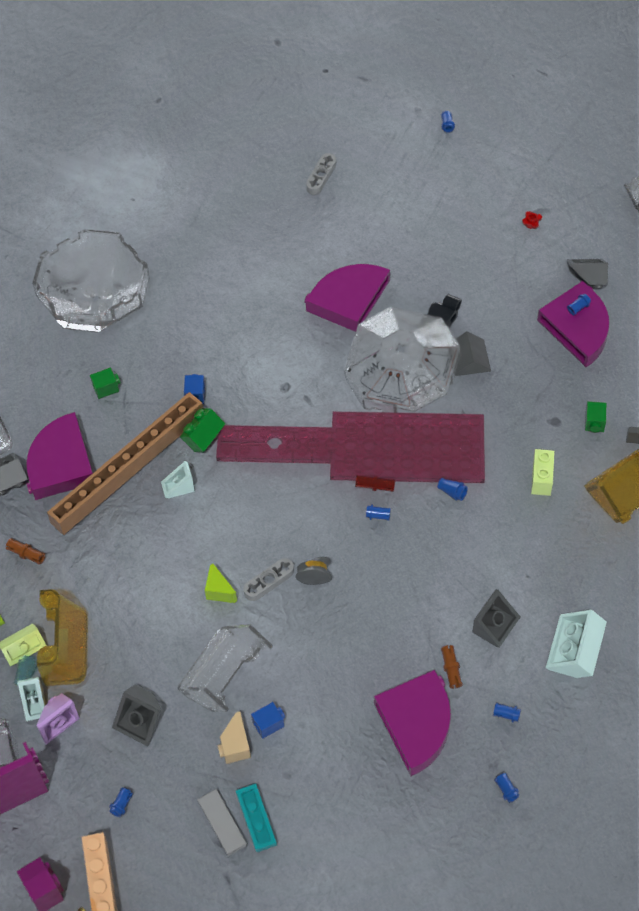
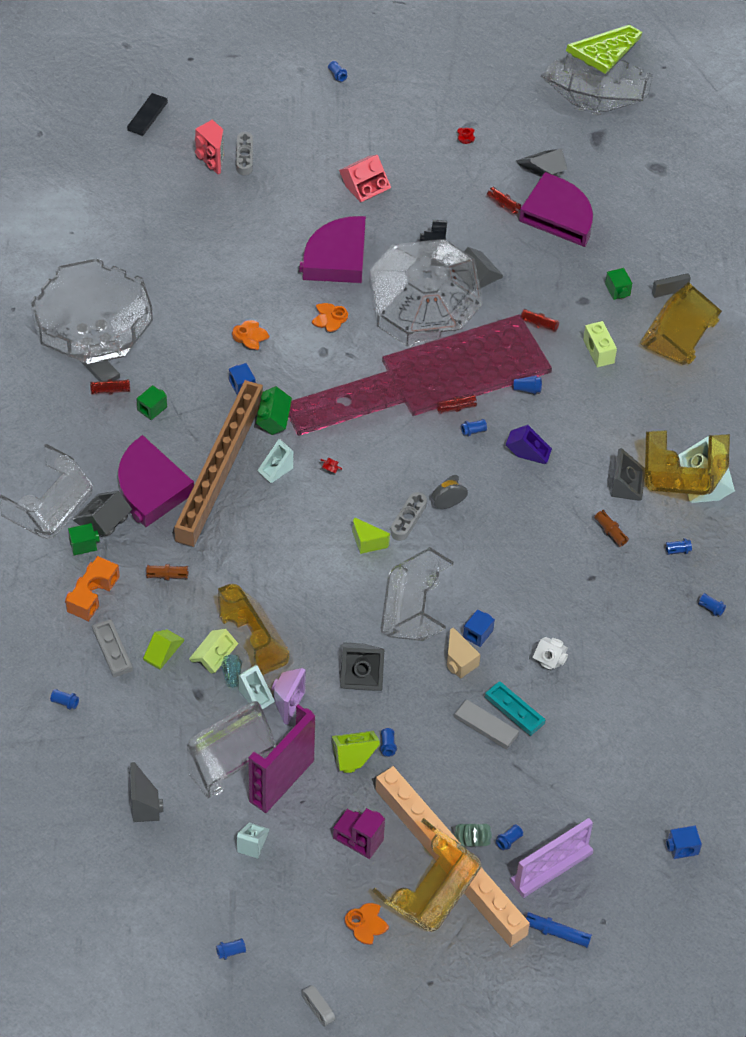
camera: 30 degrees left, 5 degrees down
(79, 355) = (110, 386): none -> clear red pin
(83, 341) = (103, 371): none -> dark grey tile
(83, 796) = (354, 749): none -> lime slope
(225, 502) = (330, 465): none -> red plate
(230, 348) = (250, 334): none -> orange plate
(258, 110) = (147, 114): none -> black tile
(291, 157) = (210, 145): none -> coral slope
(307, 356) = (330, 316): none -> orange plate
(319, 775) = (551, 653): none -> white brick
(414, 232) = (365, 178): none -> coral slope
(416, 719) = (606, 579): magenta brick -> none
(418, 551) = (528, 445): none -> dark purple slope
(500, 427) = (540, 320): none -> clear red pin
(531, 295) = (504, 200): none -> clear red pin
(537, 637) = (663, 468): none -> clear yellow windscreen
(582, 301) = (556, 189): blue pin -> none

